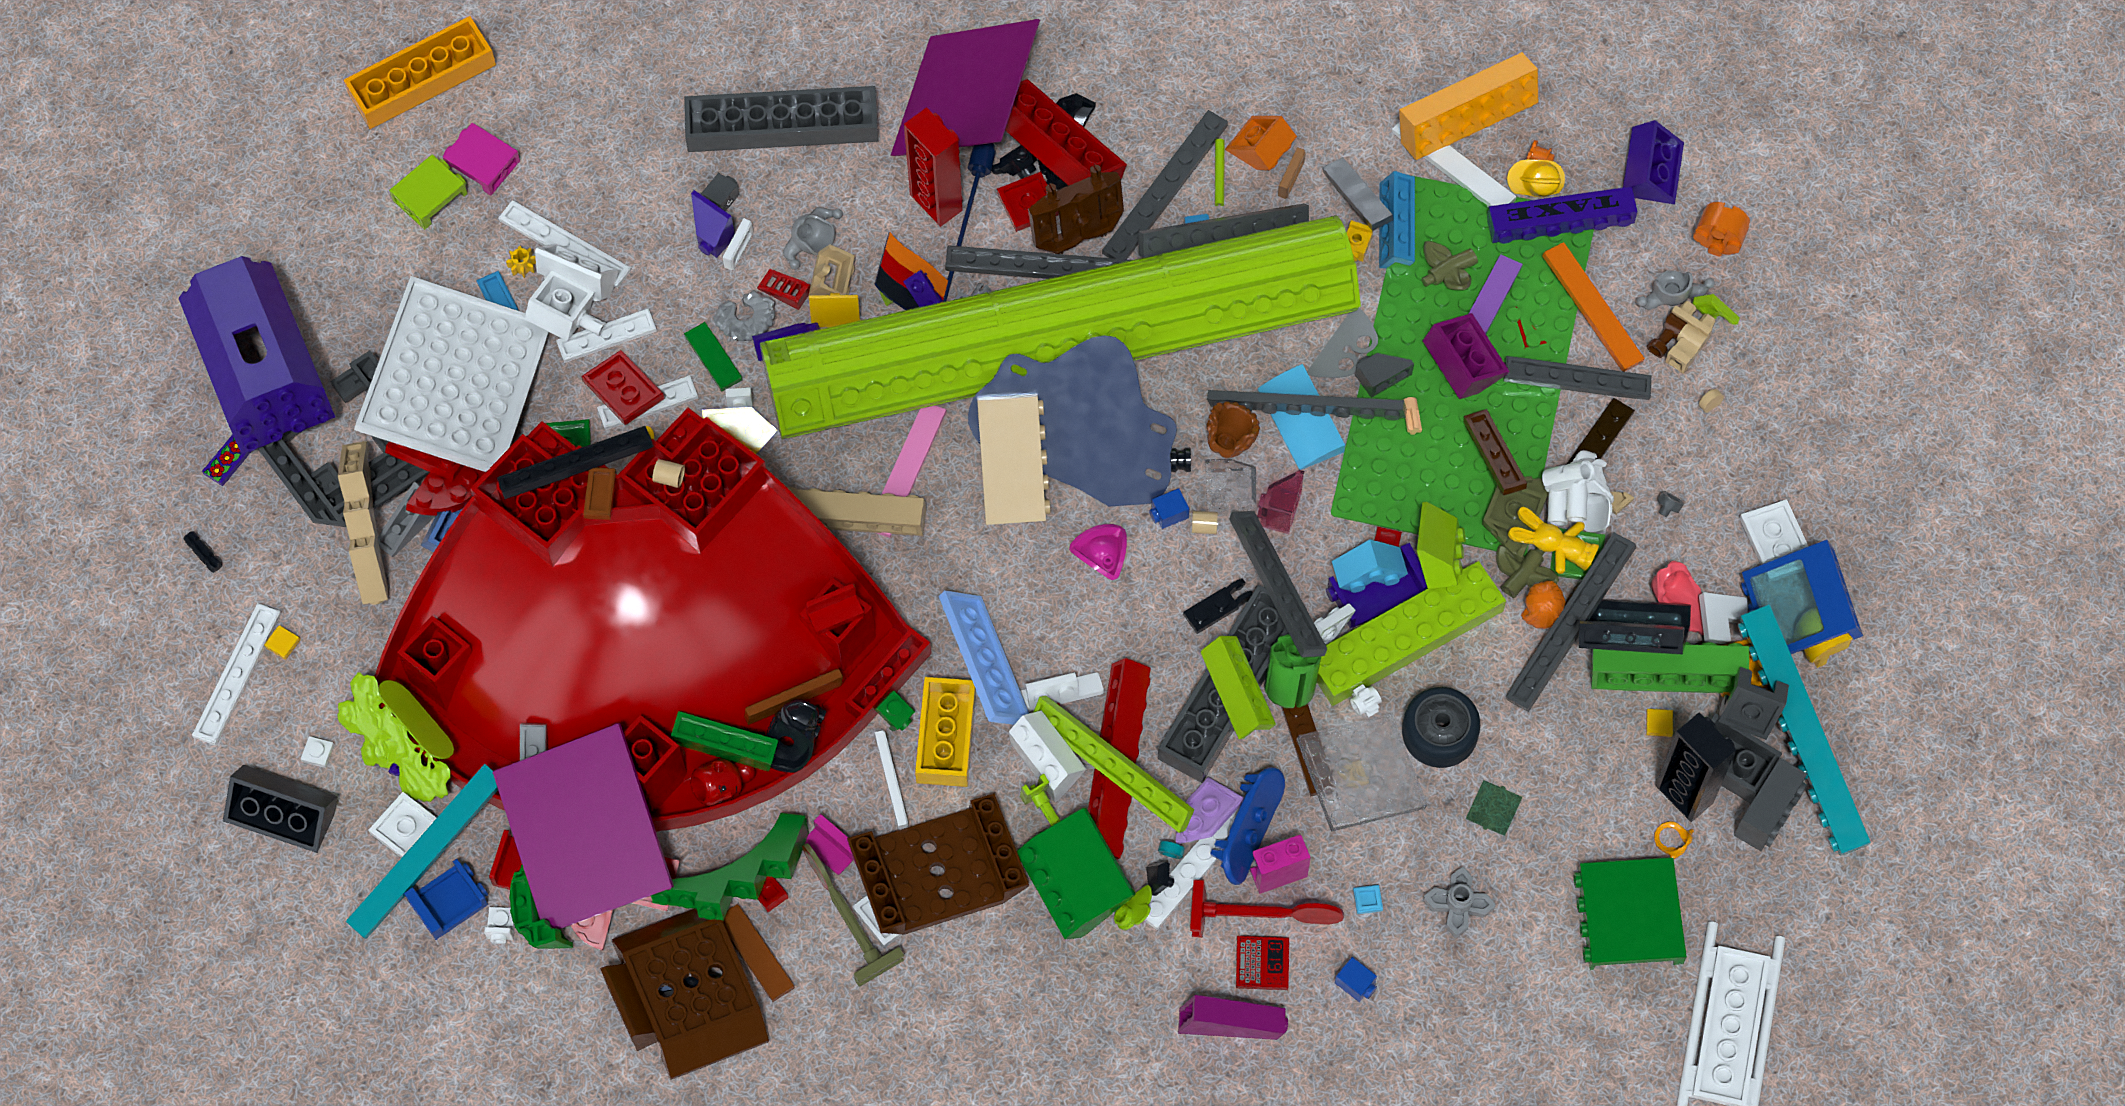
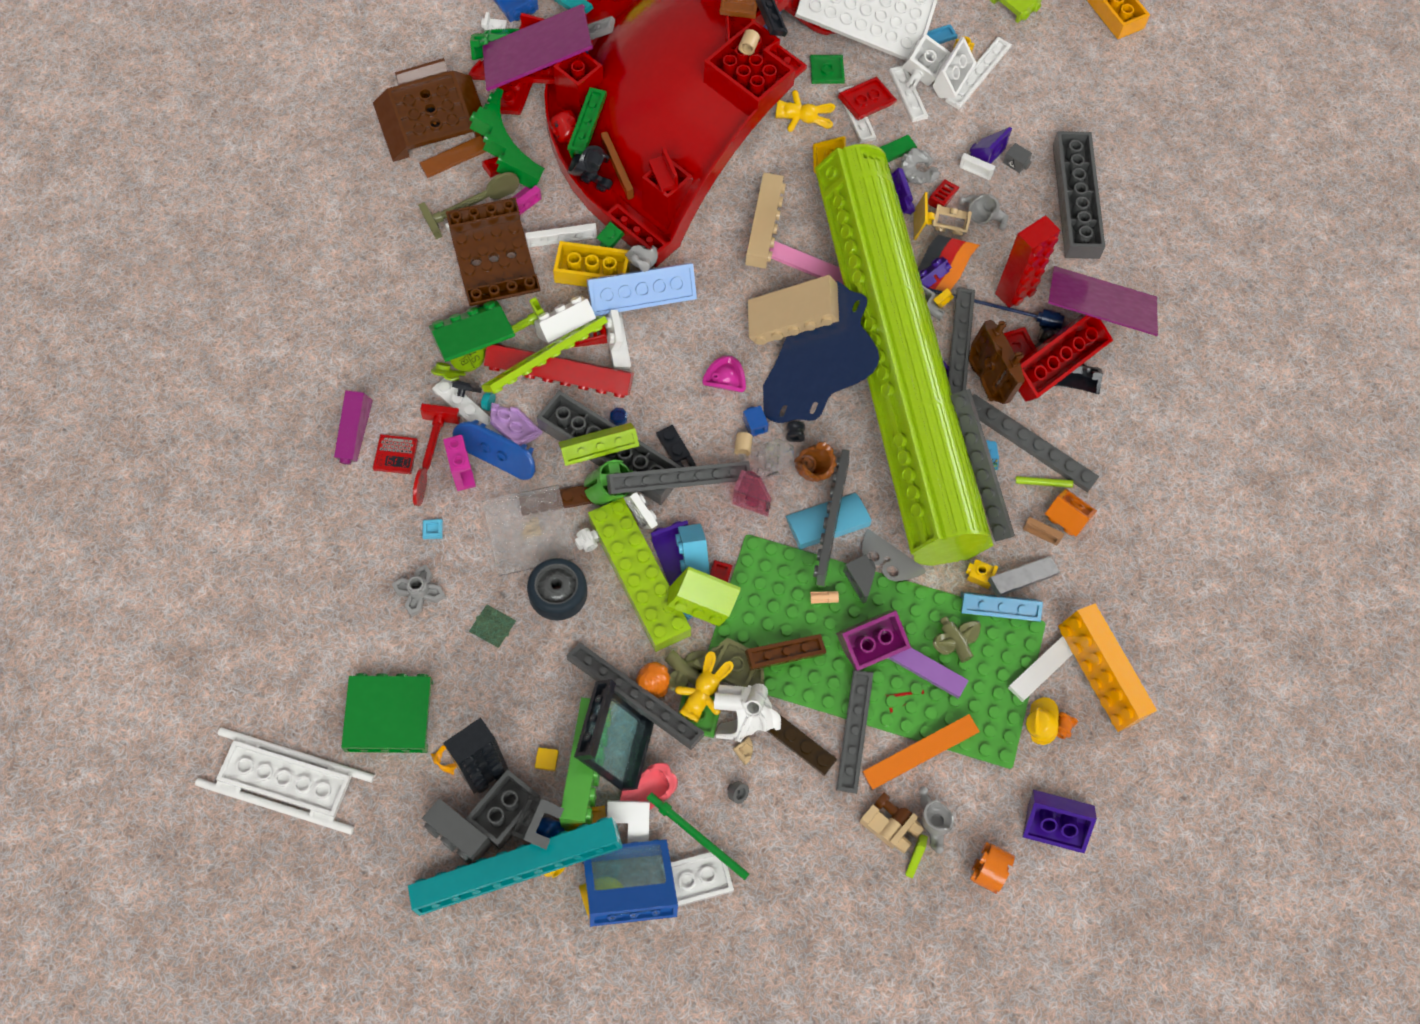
camera: 90 degrees right, 0 degrees up
(482, 157) = (1041, 26): dark pink panel -> none
(941, 655) = (642, 257): none -> light grey piece
(961, 283) = (943, 298): none -> yellow tile
(1176, 681) = (618, 416): none -> clear blue tile
(1356, 980) = (369, 512): blue brick -> none
(1562, 215) = (1005, 734): dark purple brick -> none
(1707, 574) = (666, 810): none -> green bar
(1711, 400) = (831, 839): tan tile -> none

